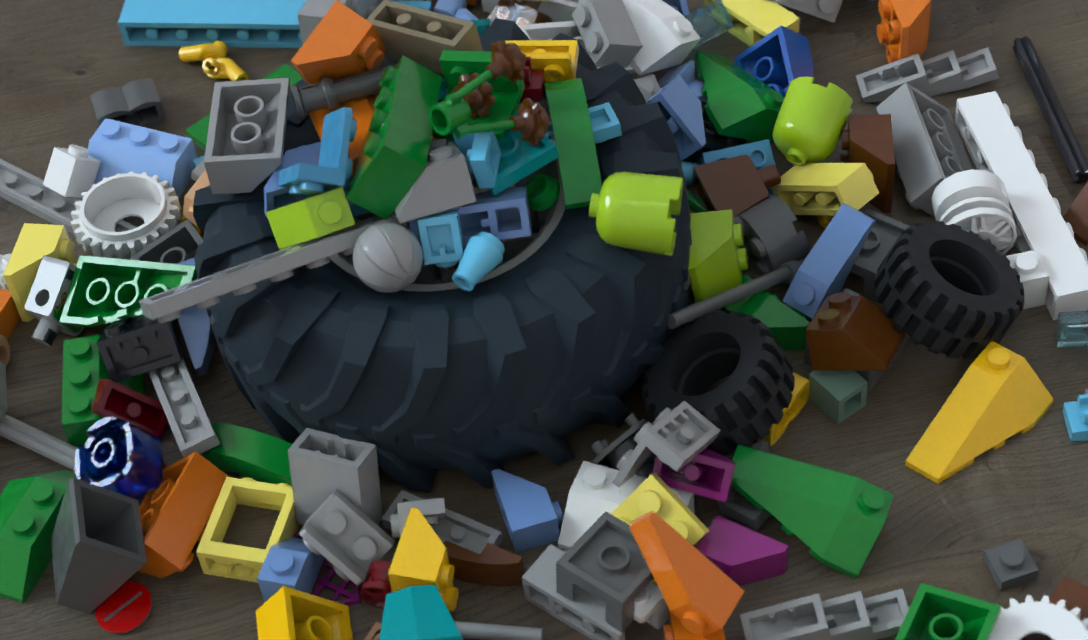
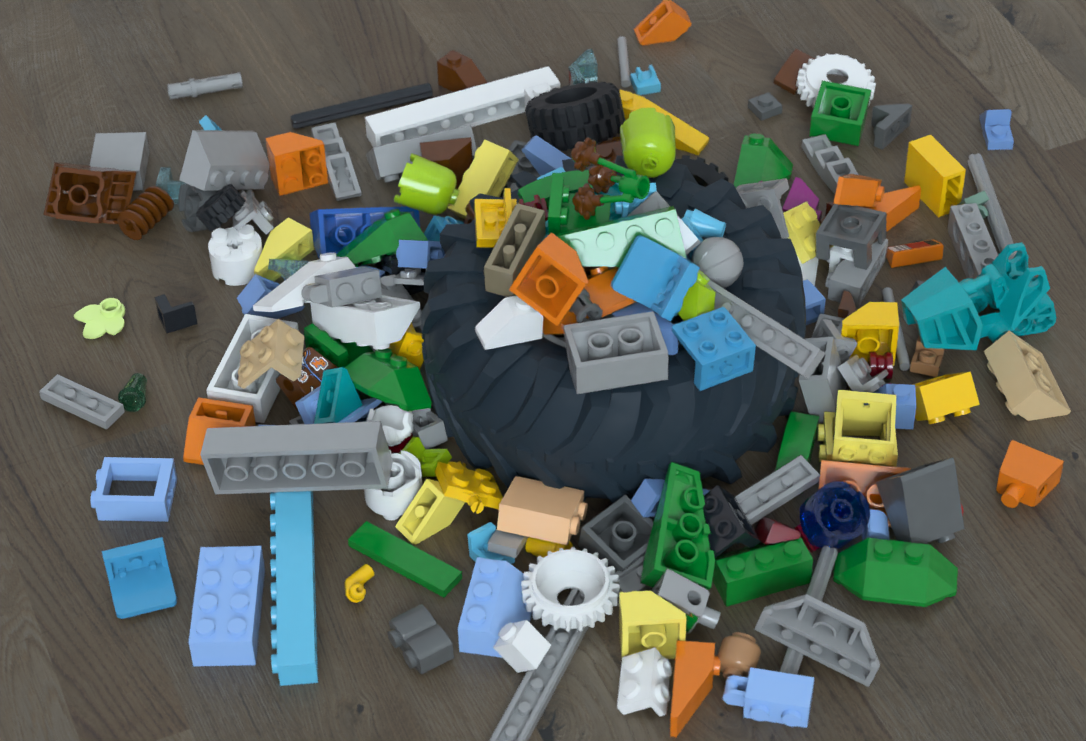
camera: 105 degrees left, 5 degrees down
(203, 51) = (337, 605): yellow arm -> none
(230, 223) = (717, 346): none -> dark azure bracket
(263, 524) = (881, 410): none -> light yellow window
(978, 204) = (499, 118): white wheel -> none

